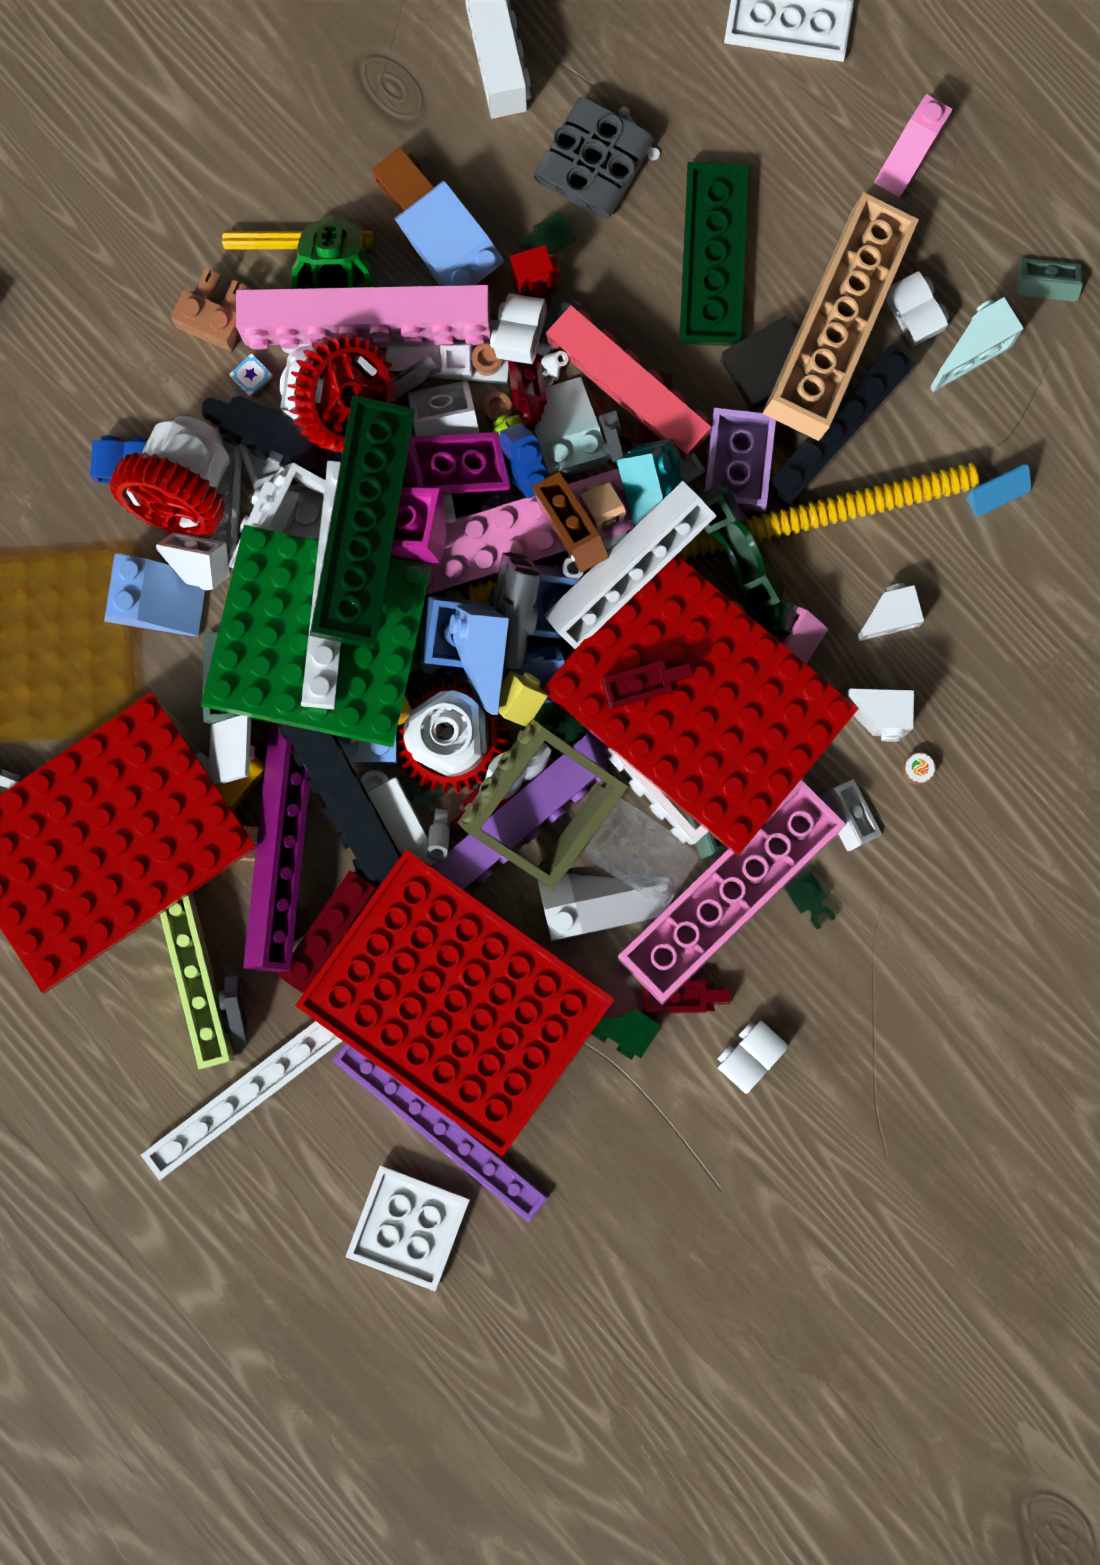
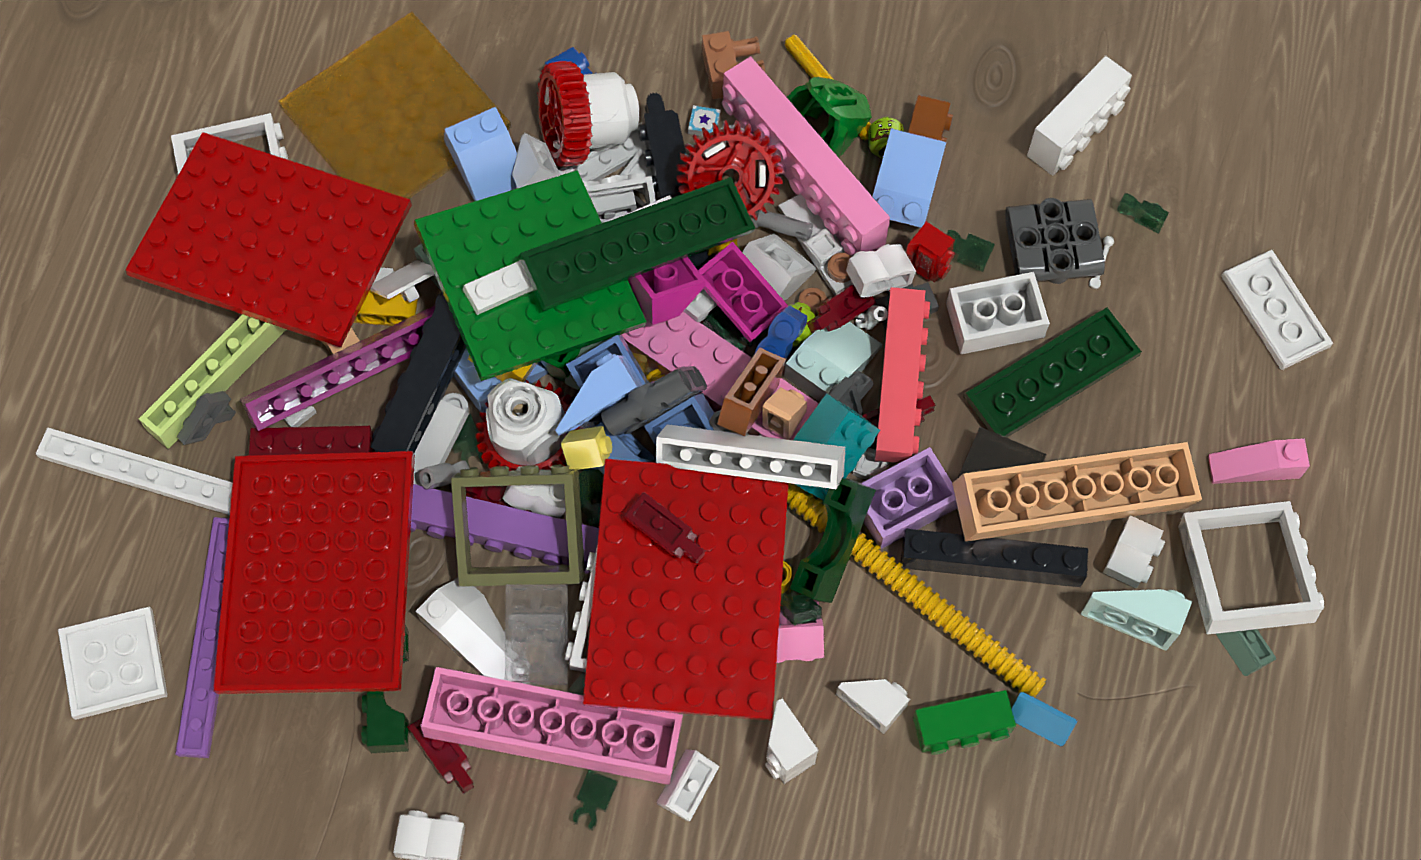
camera: 50 degrees right, 15 degrees down
(384, 229) = (879, 134): none -> lime head
(626, 60) = (1145, 213): none -> clear green plate
(628, 258) = (997, 313): none -> white brick
(919, 768) = (765, 813): tile -> none
(960, 554) = (964, 722): none -> green brick
(982, 270) = (1222, 621): none -> white window

